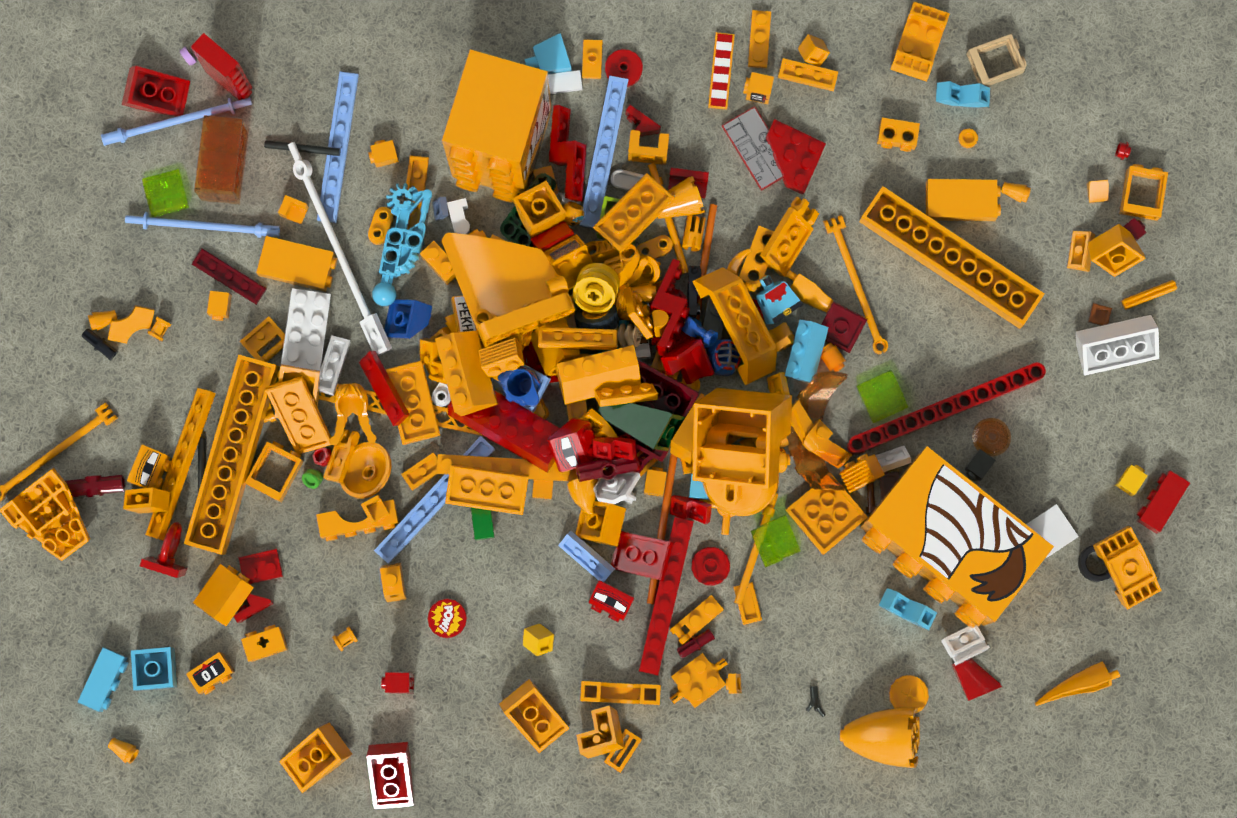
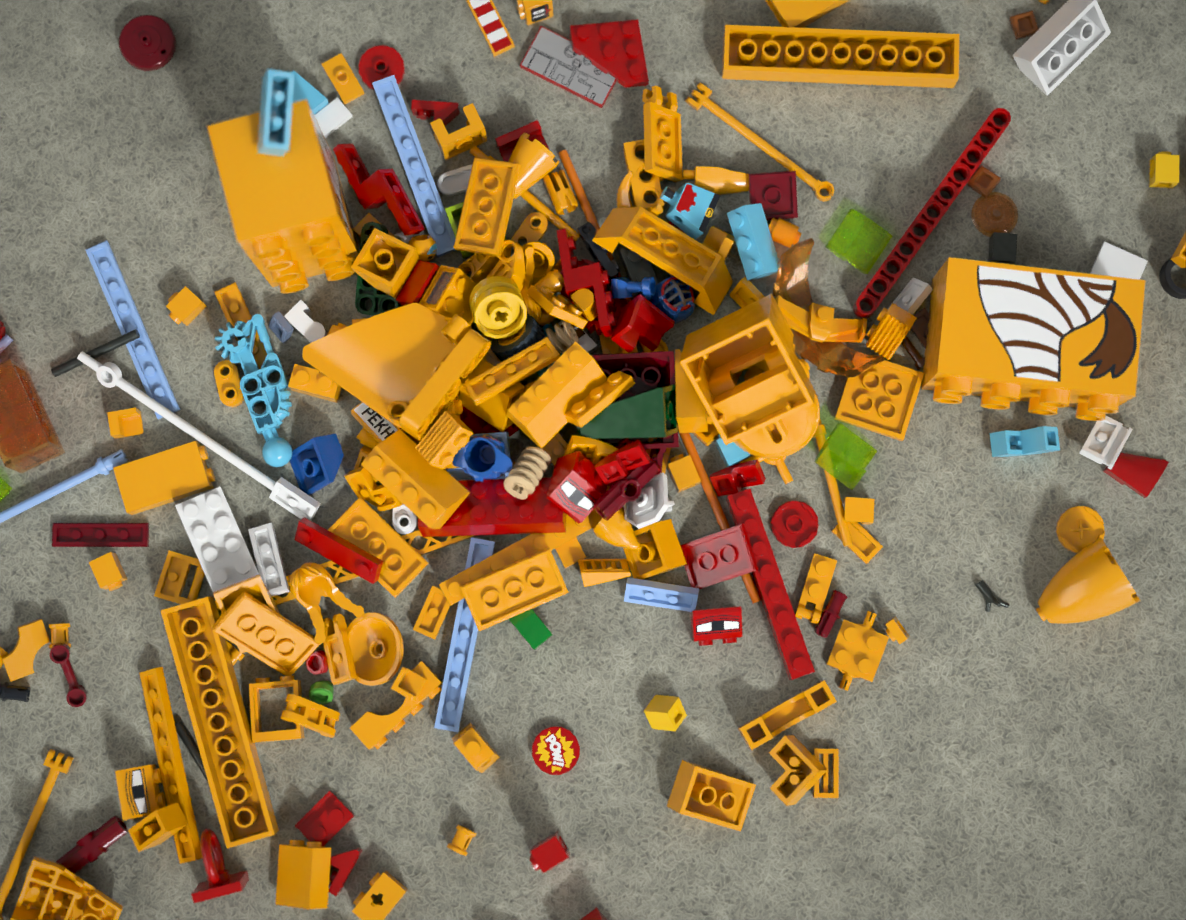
camera: 30 degrees left, 0 degrees up
(152, 342) = (60, 654): none -> dark red bar
(295, 489) = (311, 715): none -> light orange plate
(520, 69) = (275, 112): none -> medium azure brick
(545, 414) = (527, 472): none -> tan piece
(556, 515) = (602, 570): none -> light orange slope
(760, 584) = (859, 510): none -> light orange panel
(998, 409) = (983, 181): none -> dark orange tile

